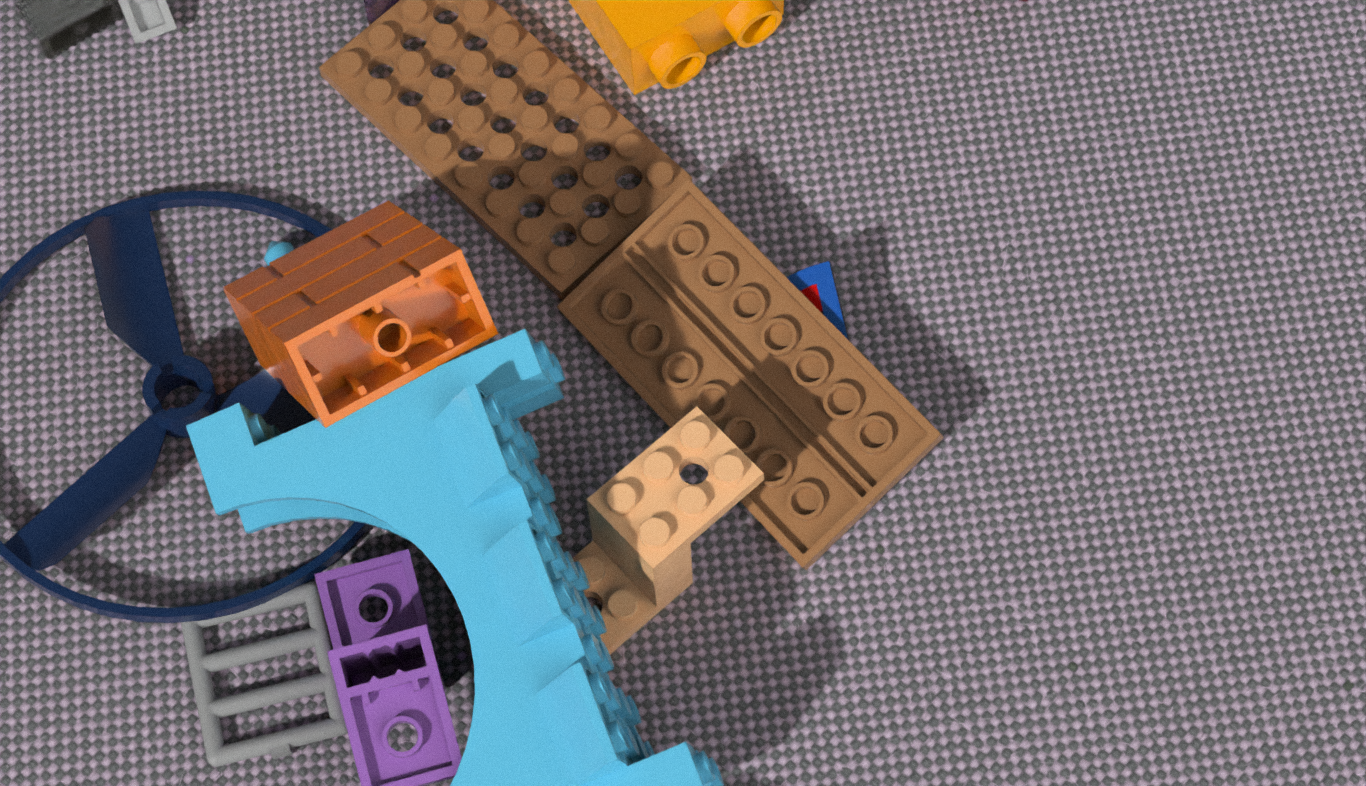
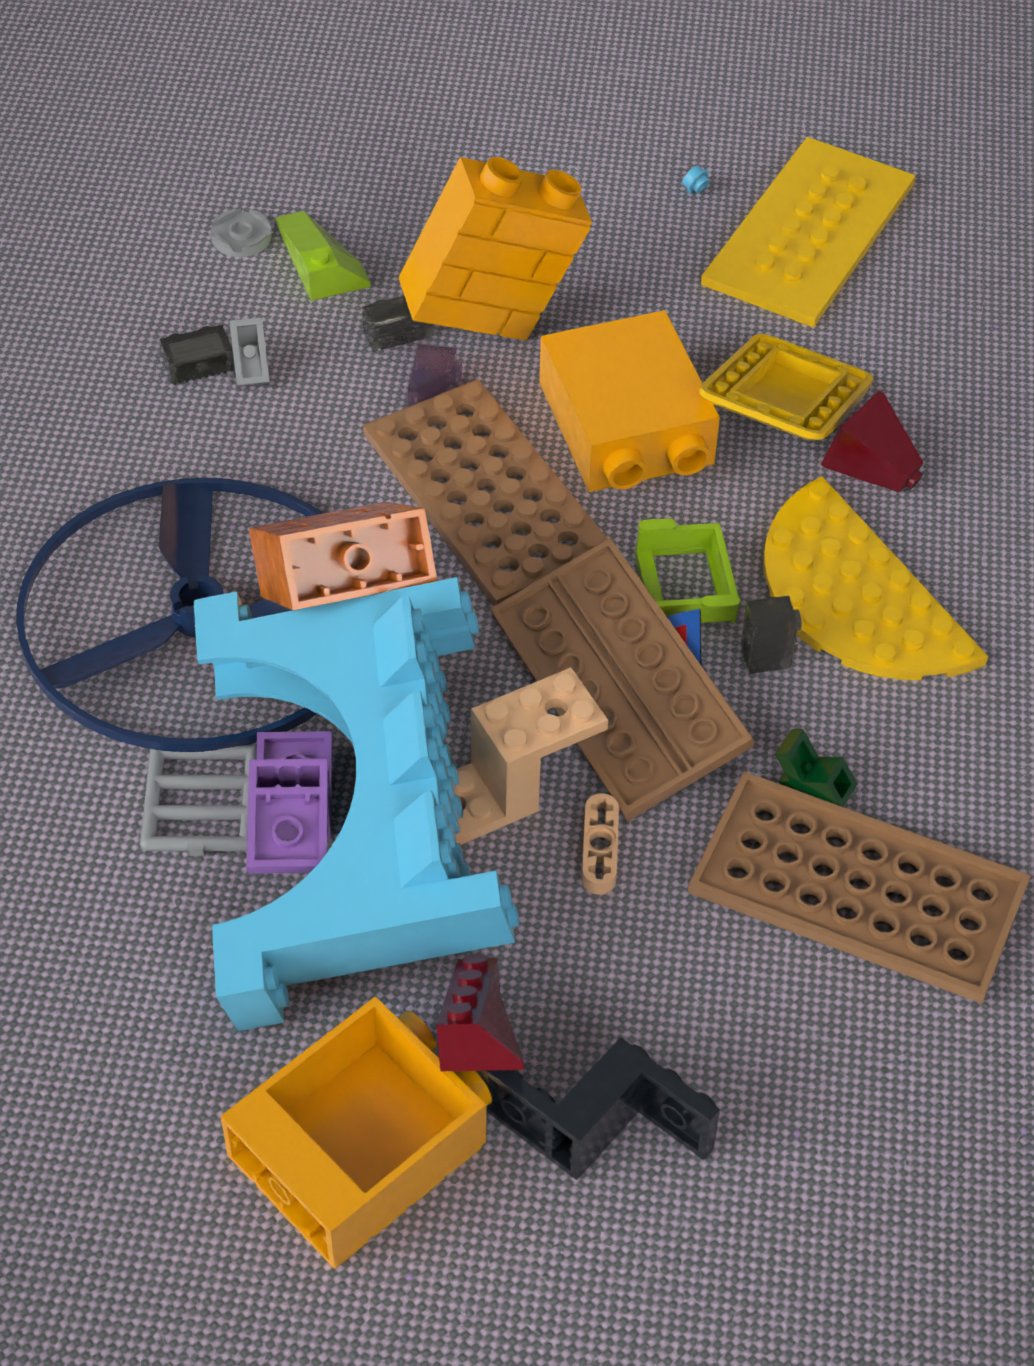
camera: 10 degrees right, 15 degrees down
(755, 148) = (664, 537): none -> lime piece
(802, 643) = (606, 856): none -> light nougat beam
(921, 266) = (770, 634): none -> clear smoke brick
(1006, 170) = (858, 594): none -> yellow plate
(1024, 457) = (814, 774): none -> dark green brick
(1145, 528) = (858, 935): none -> medium nougat piece

